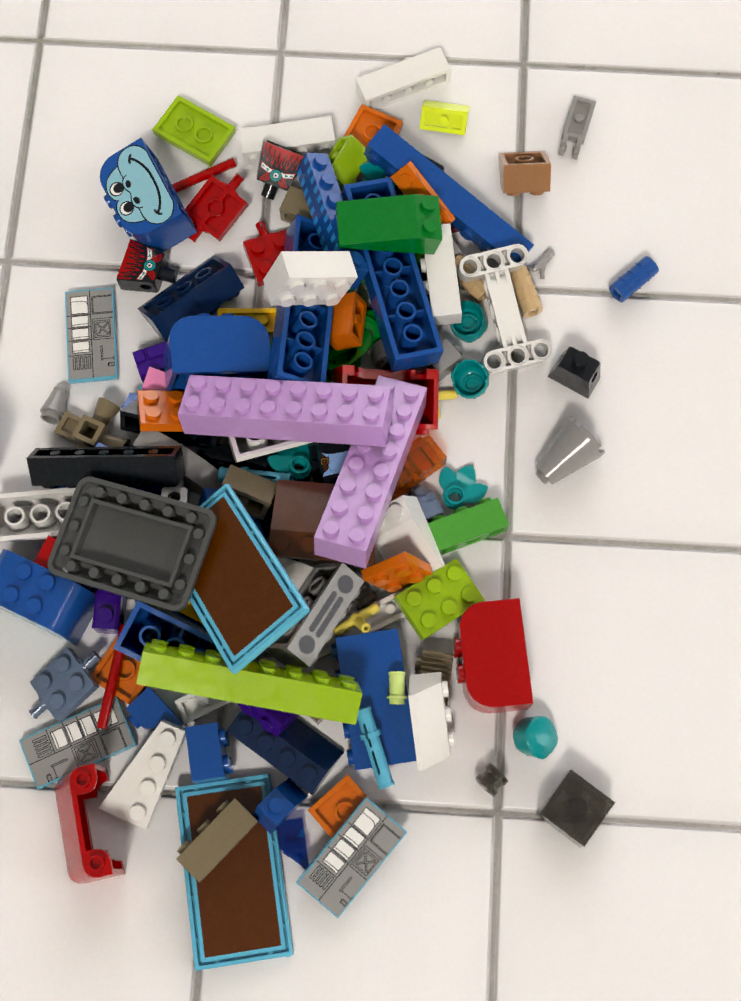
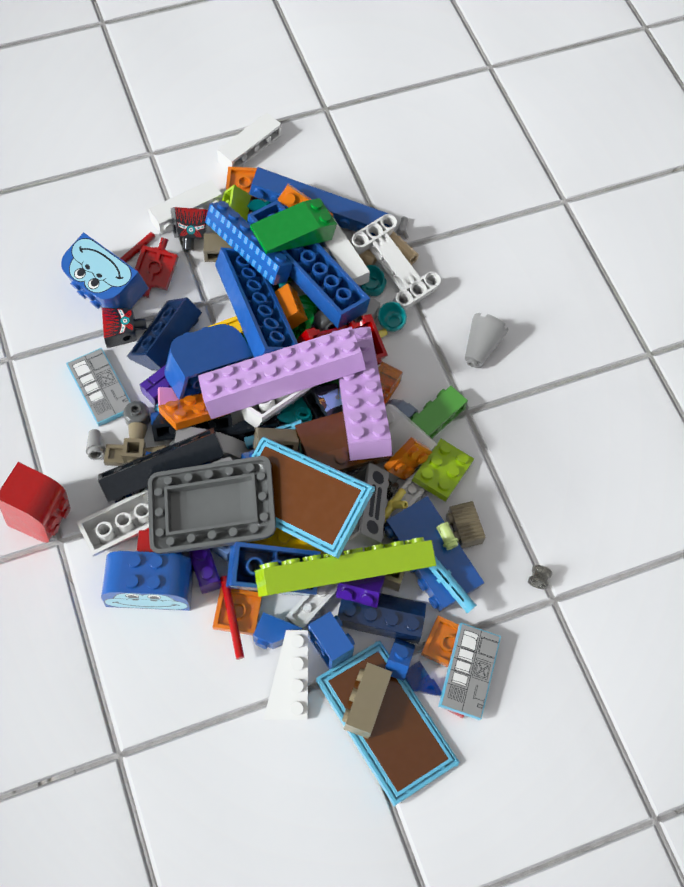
camera: 30 degrees left, 10 degrees down
(64, 684) = (195, 639): sand blue plate -> none
(71, 793) = (268, 757): red windscreen -> none
(76, 743) = (223, 681): light grey tile -> none
(114, 387) = (137, 412): none -> dark grey head
(194, 130) = (113, 222): lime plate -> none
(263, 251) = (208, 288): red plate -> none
(309, 278) = (256, 279): white brick -> none
(430, 718) = (479, 547): white slope -> none
(444, 117) = (290, 157): neon yellow panel -> none
(463, 485) = (419, 389): teal plate -> none
(493, 657) = (502, 492): red brick -> none
(524, 172) = (363, 174): medium nougat slope -> none
(535, 736) = (554, 535): teal hair -> none
(575, 808) = (607, 571): clear smoke brick -> none
(576, 371) = (461, 285): black torso -> none
(577, 124) = (382, 134): light grey hinge -> none
(633, 279) = (469, 216): blue axle -> none

